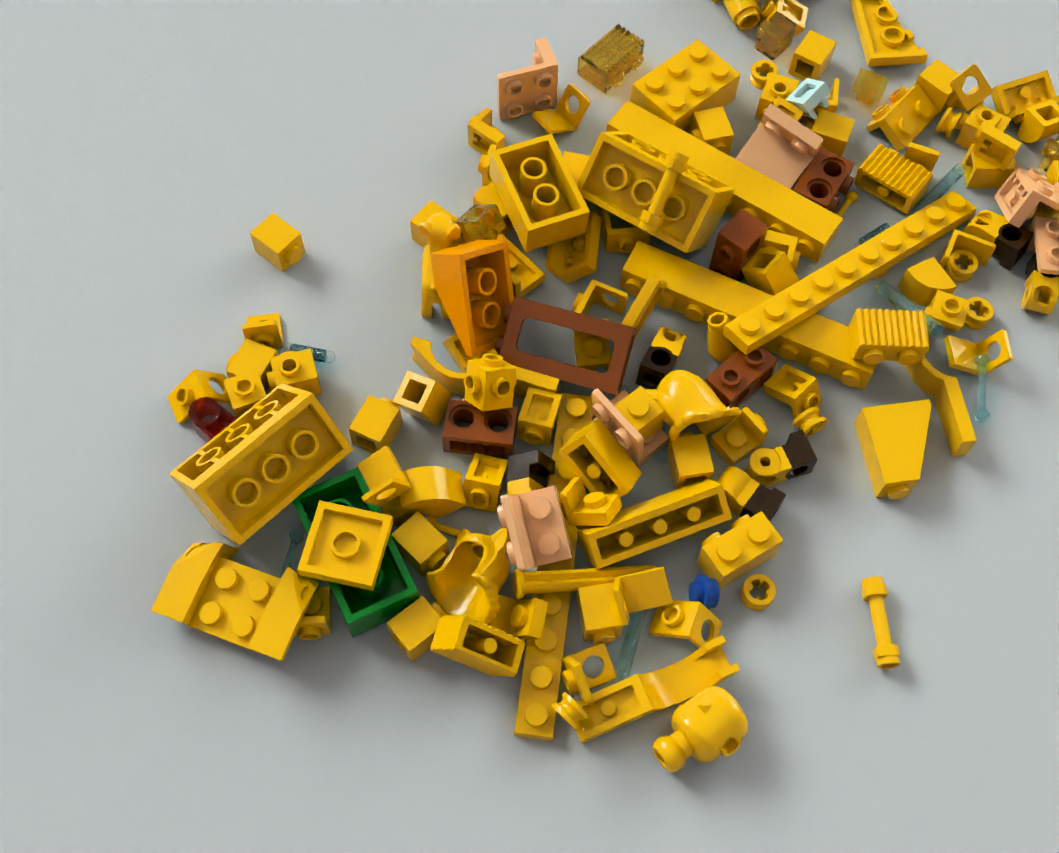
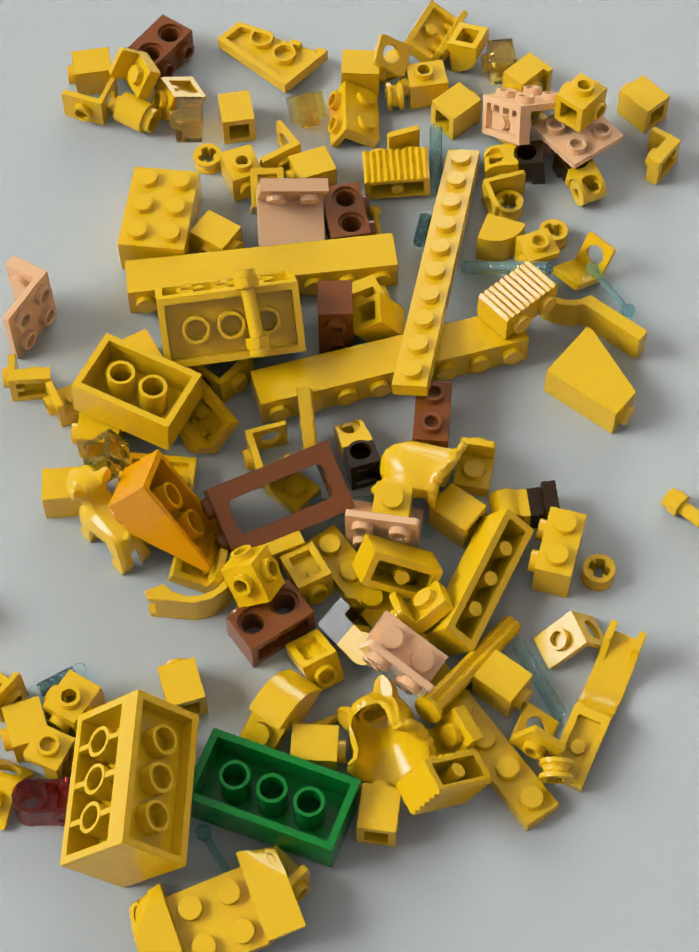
camera: 40 degrees left, 5 degrees down
(345, 545) = (273, 791): yellow plate -> none
(382, 477) = (243, 716): yellow bracket -> none
(422, 398) = (202, 634): yellow brick -> none
(561, 118) = (75, 320): yellow bracket -> none
(611, 58) = (68, 235): clear yellow brick -> none
(641, 592) = (522, 638): yellow bracket -> none
(703, 728) = (658, 701): yellow piece -> none
(705, 591) = (561, 601): blue plate -> none
(717, 344) = (389, 406): yellow cone -> none
(783, 462) = (528, 454): leg -> none
(794, 388) = (480, 397): yellow bracket -> none
(809, 95) = (275, 150): light aqua tile -> none
(810, 421) = (515, 413): yellow bush -> none
(994, 144) = (453, 90): yellow bracket -> none

